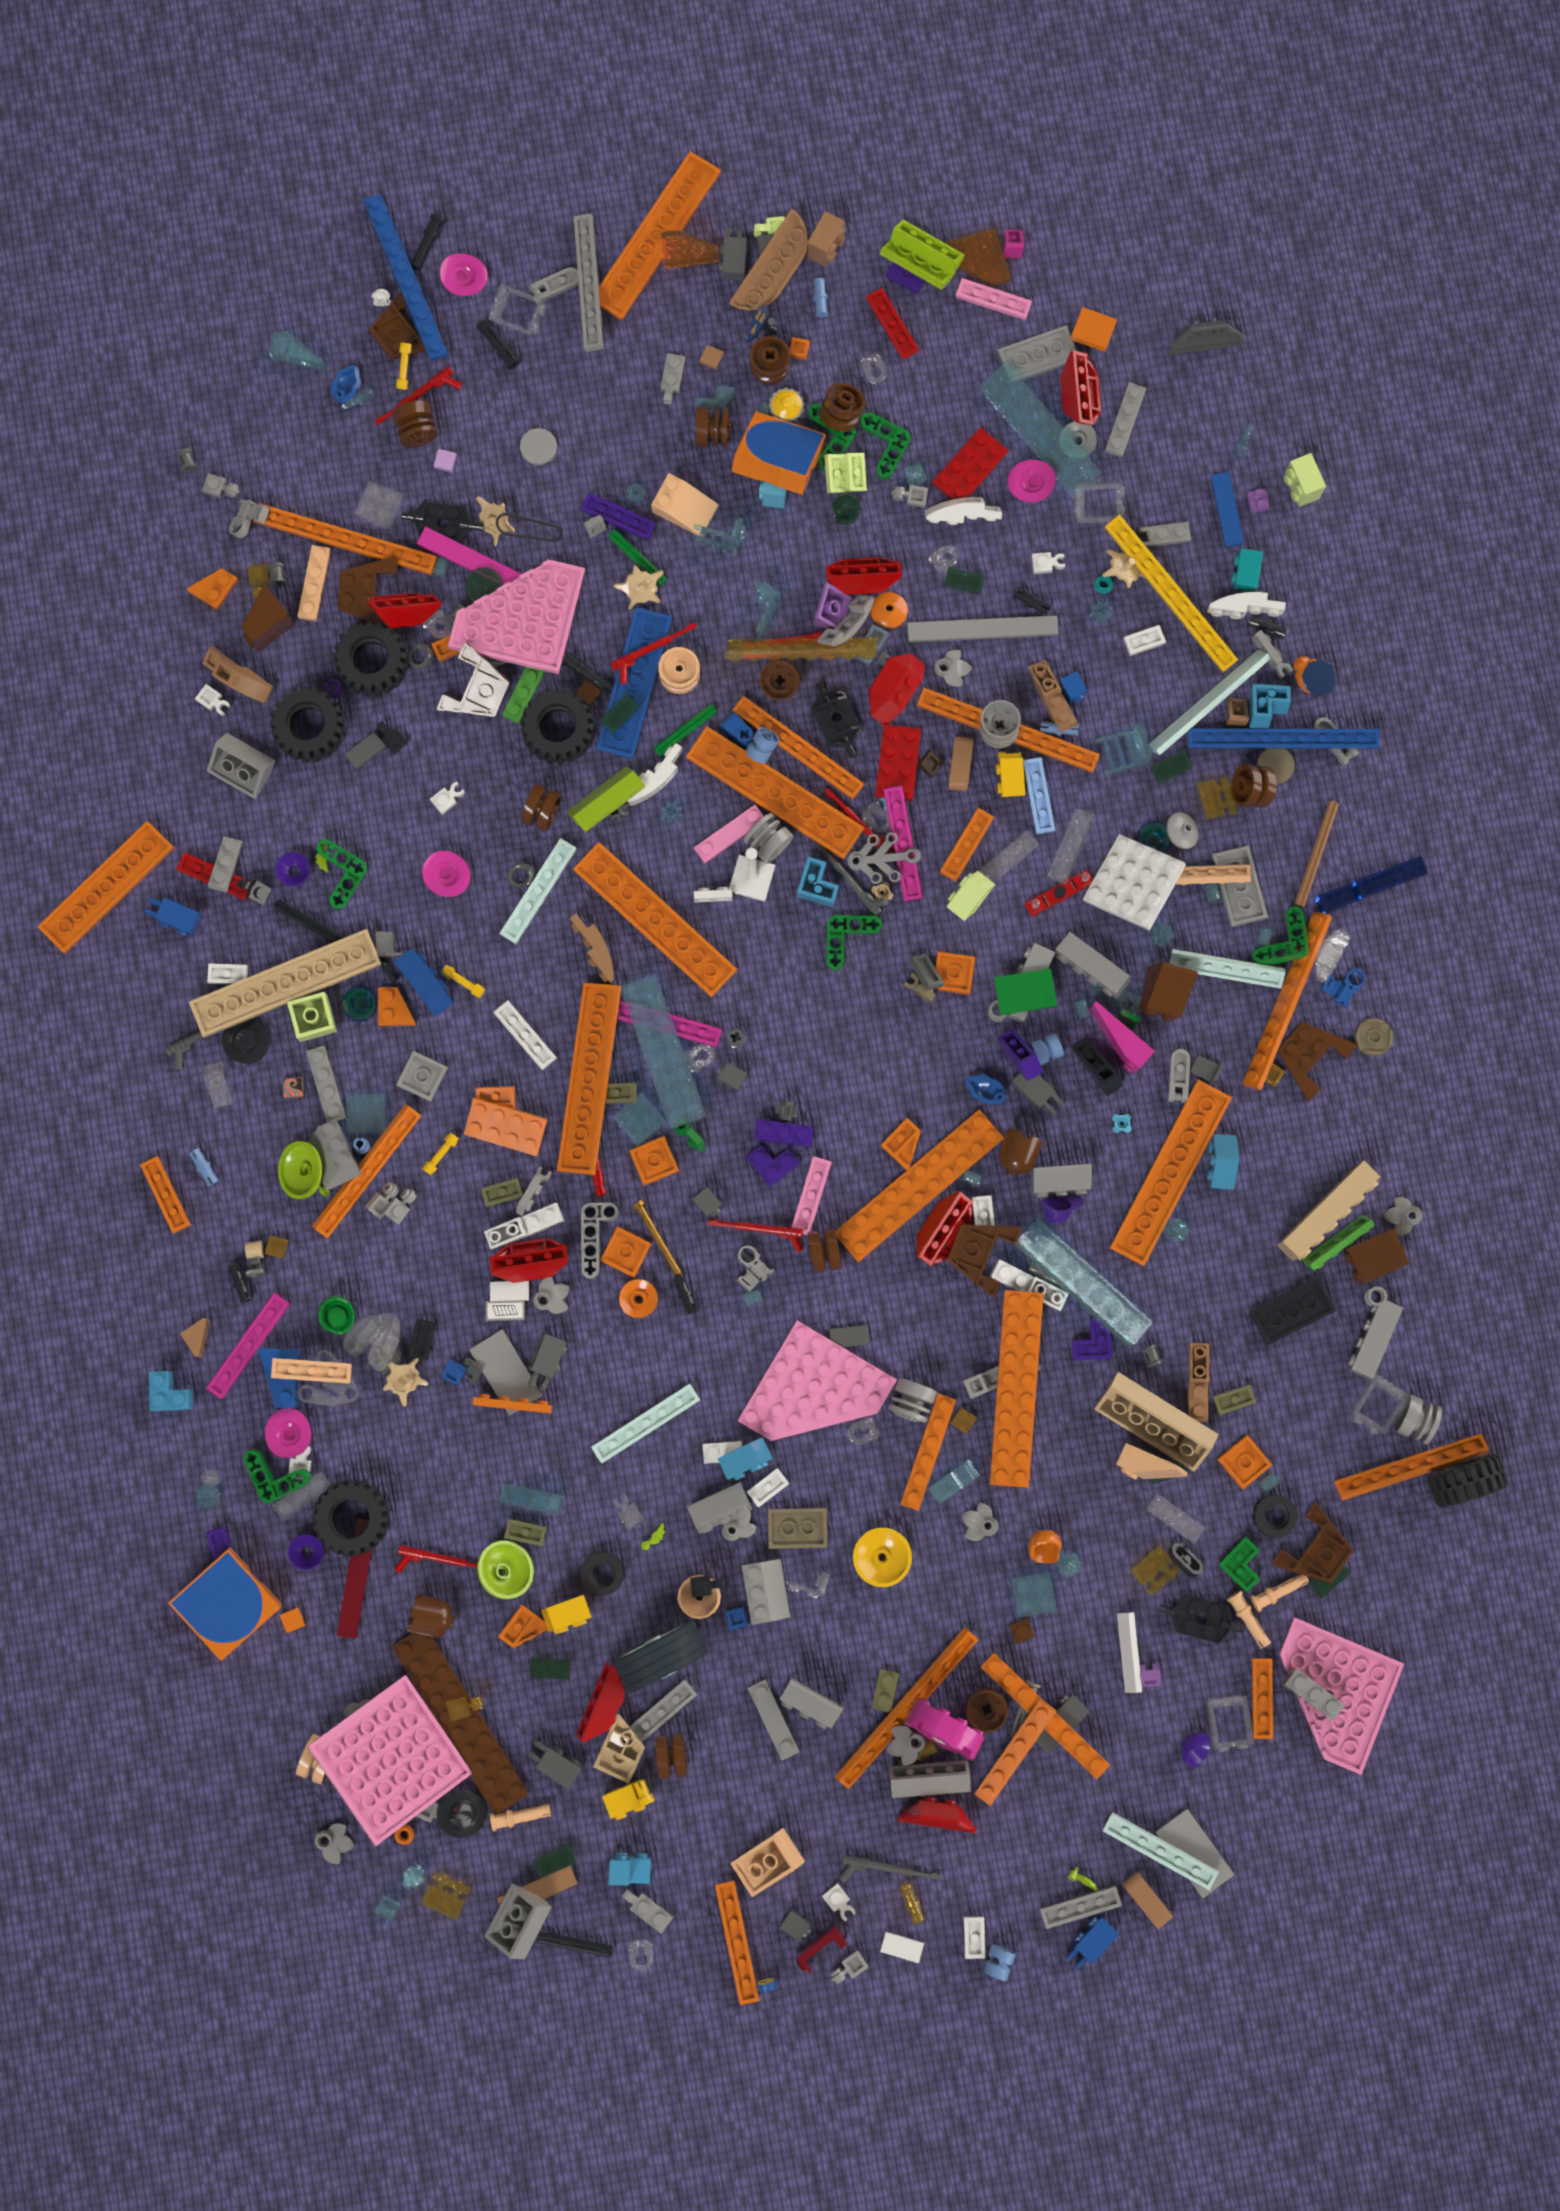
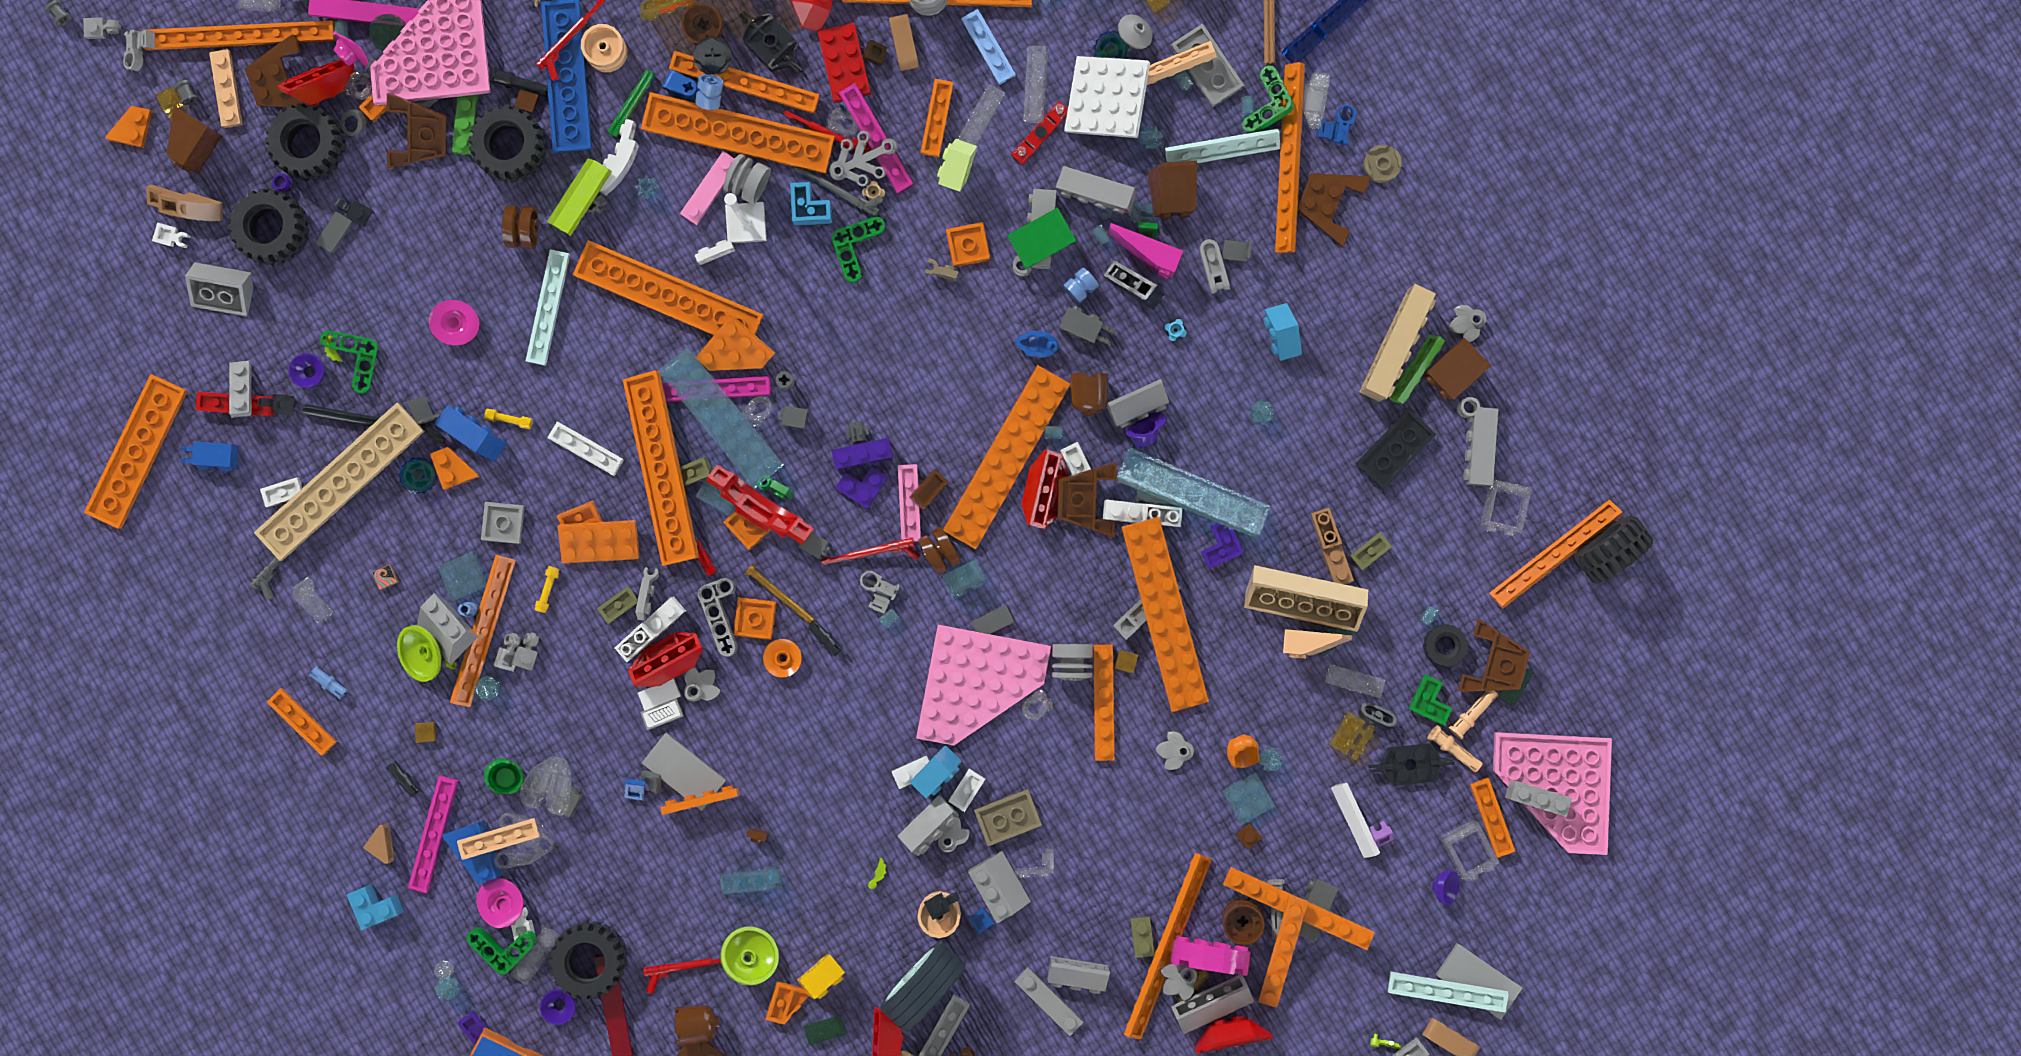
camera: 20 degrees left, 5 degrees up
(245, 1042) = (324, 550): black hat -> none
(255, 1252) = (405, 745): leg -> none
(312, 1016) = (376, 504): yellowish green brick -> none
(326, 1084) = (415, 562): light grey plate -> none
(350, 1226) = (487, 688): none -> clear light blue gear
(403, 1380) = (589, 814): tan piece -> none
(422, 1339) = (593, 769): black plate -> none
(443, 590) = (349, 50): none -> dark pink hat
(445, 800) = (427, 252): white plate -> none
(524, 866) = (536, 293): dark grey piece -> none
(525, 1532) = (756, 913): olive plate -> none
(546, 1359) = (716, 746): dark grey hinge -> none
(553, 1459) = (757, 835): none -> reddish brown plate
(587, 1573) = (841, 940): black tyre -> none
(599, 954) = (627, 346): medium nougat slope -> none
(619, 714) = (562, 110): clear green plate -> none
(629, 1514) = (846, 861): clear plate -> none
(645, 1423) = (831, 772): light aqua plate -> none
(667, 1148) = (757, 507): none -> red piece
(699, 992) = (734, 348): none -> orange plate
(778, 713) = (712, 55): none -> black tile
(834, 1189) = (928, 489): none -> reddish brown tile
(837, 1285) = (963, 578): none -> clear light blue brick
(894, 1566) = (1098, 830): yellow dish -> none
(902, 1143) = (977, 422): orange wing -> none
(926, 972) = (941, 253): dark grey tile -> none
(953, 1482) = (1137, 722): clear light blue piece -> none
(1011, 775) = (955, 35): yellow hinge -> none
(1020, 1054) = (1057, 300): dark purple brick -> none
(1151, 1356) = (1279, 538): dark grey bush -> none
(1170, 1173) = (1237, 360): orange plate -> none
(1244, 1462) = (1400, 605): orange tile -> none
(1274, 1075) = (1302, 233): pearl gold tile -> none
(1423, 1421) = (1548, 508): light grey wheel -> none

